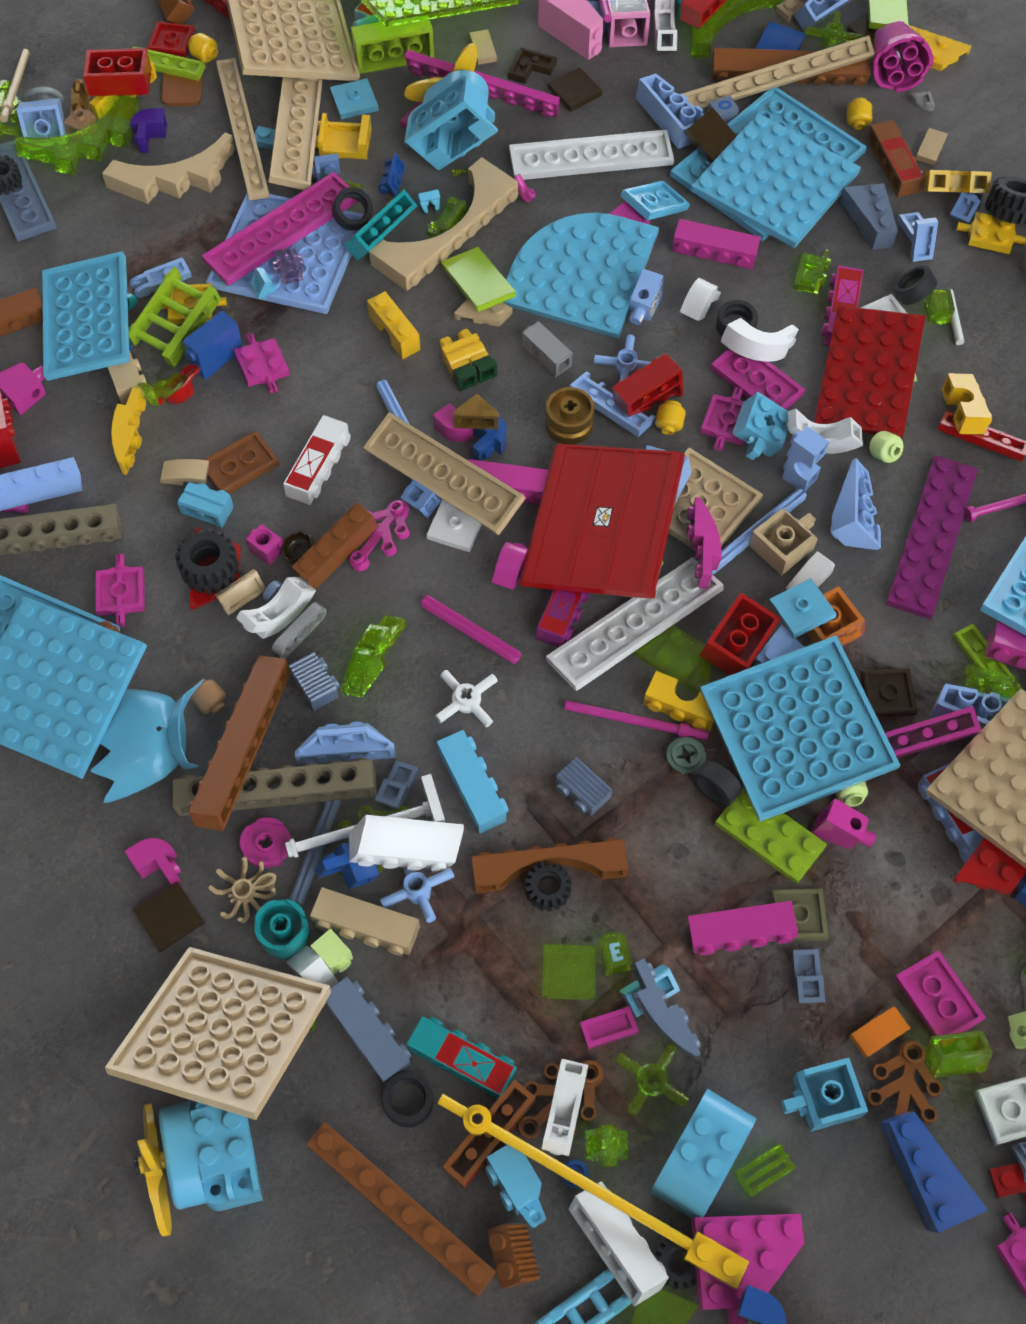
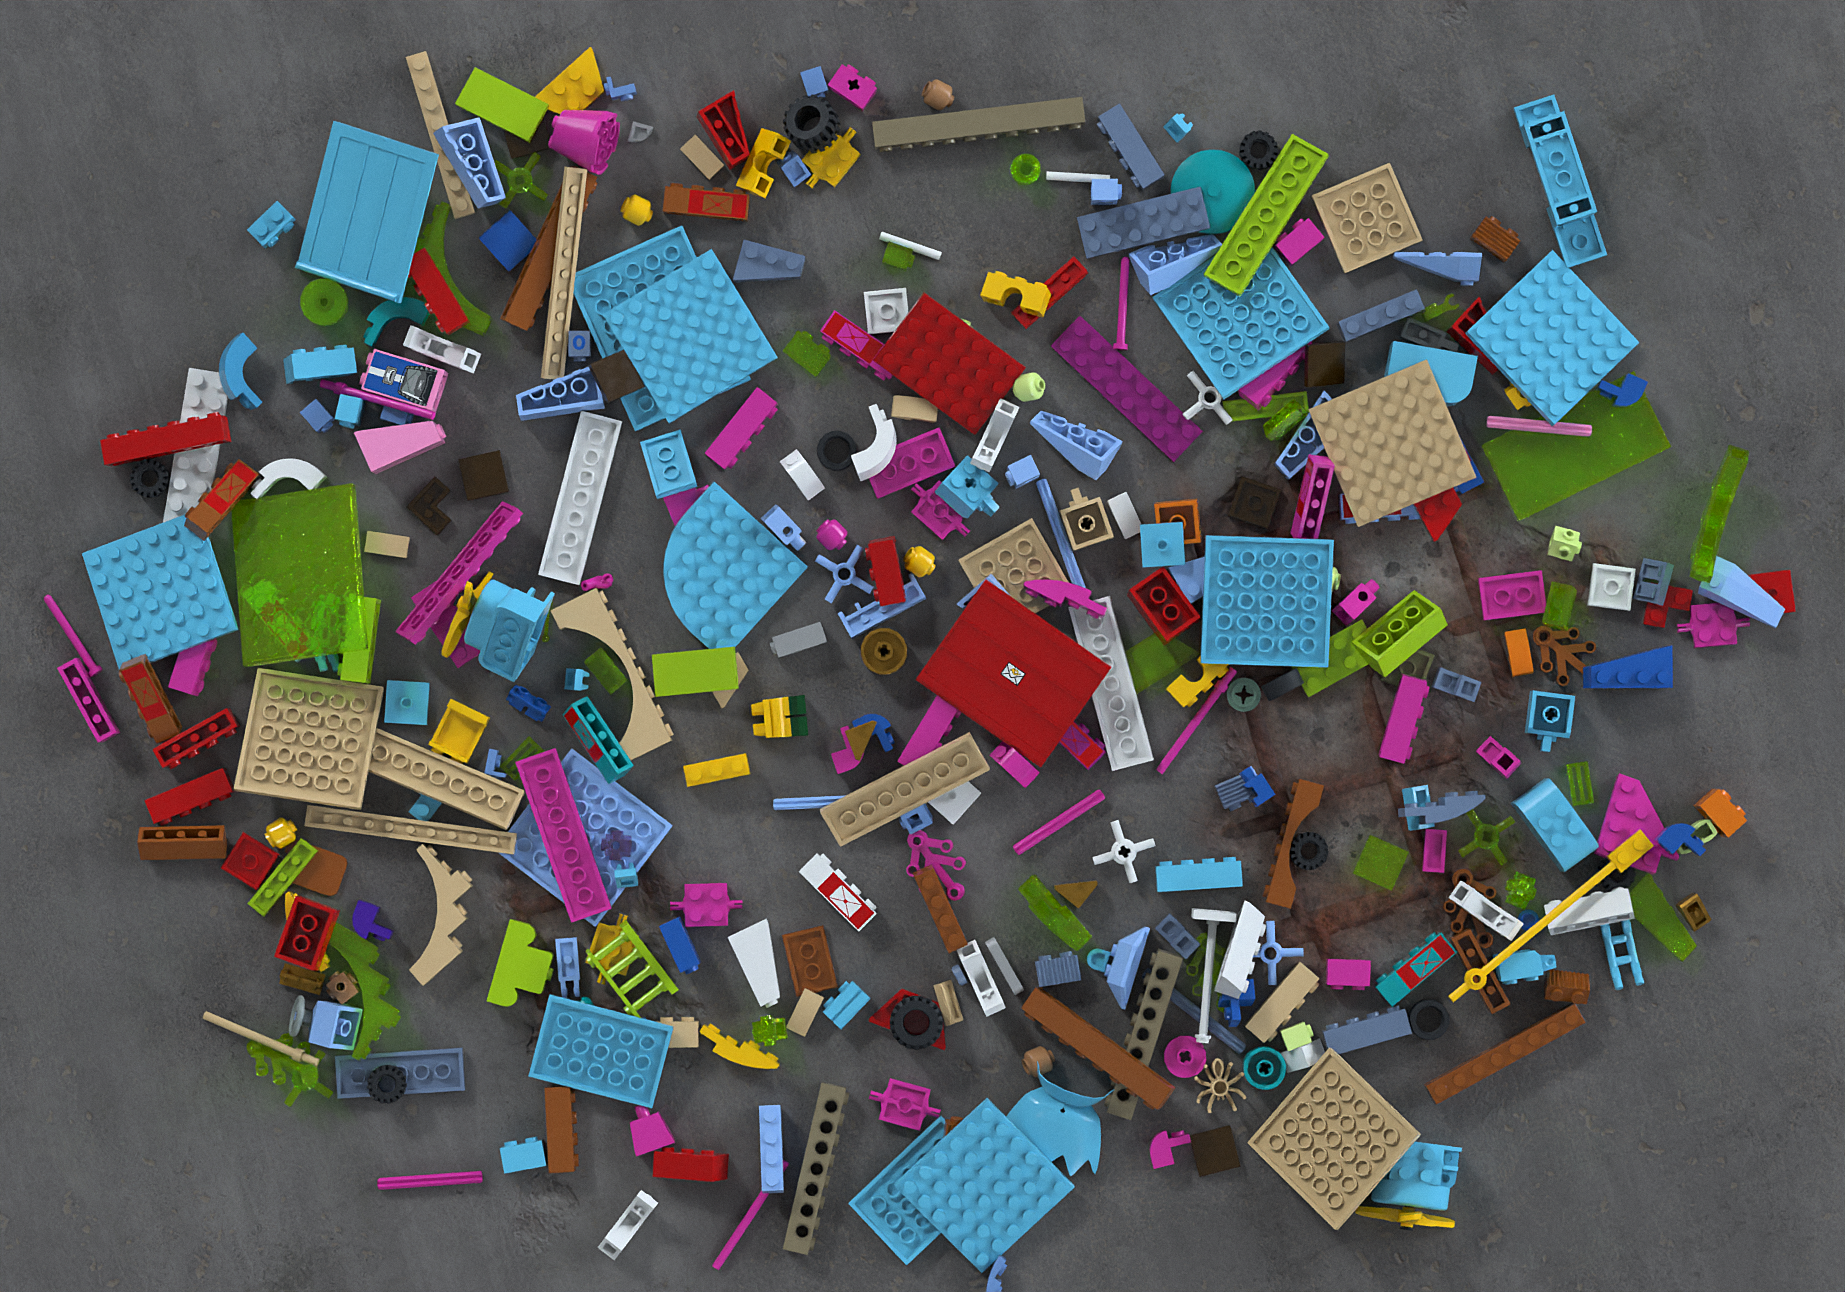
camera: 65 degrees left, 25 degrees up
(148, 240) = (519, 965): none -> lime brick
(160, 445) = (769, 1030): none -> clear neon green brick
(172, 390) = (709, 993): hair -> none
(221, 417) = (757, 960): none -> white slope
(268, 552) = (917, 967): dark pink brick -> none
(296, 546) = (924, 939): dark brown hair -> none
(341, 715) = (1098, 959): none -> medium azure tile
(363, 198) = (588, 757): black tyre -> none
(404, 669) = (1076, 892): none -> pearl gold slope
(427, 982) = (1348, 973): none -> dark pink brick
(592, 795) = (1258, 785): none -> blue hips
(614, 953) = (1382, 822): clear neon green brick -> none
(658, 340) = (832, 534): none -> dark pink head
(750, 1055) = (1498, 757): none -> dark pink brick
(810, 364) = (913, 408): none -> tan slope
(834, 887) = (1400, 633): none -> lime slope
(915, 285) = (880, 264): black tyre -> none
(921, 234) = (806, 232): light blue bracket -> none
(950, 74) = (624, 92): none -> medium blue bracket
(963, 611) = (1202, 403): none -> white bar
(969, 146) = (725, 130): none -> red wedge

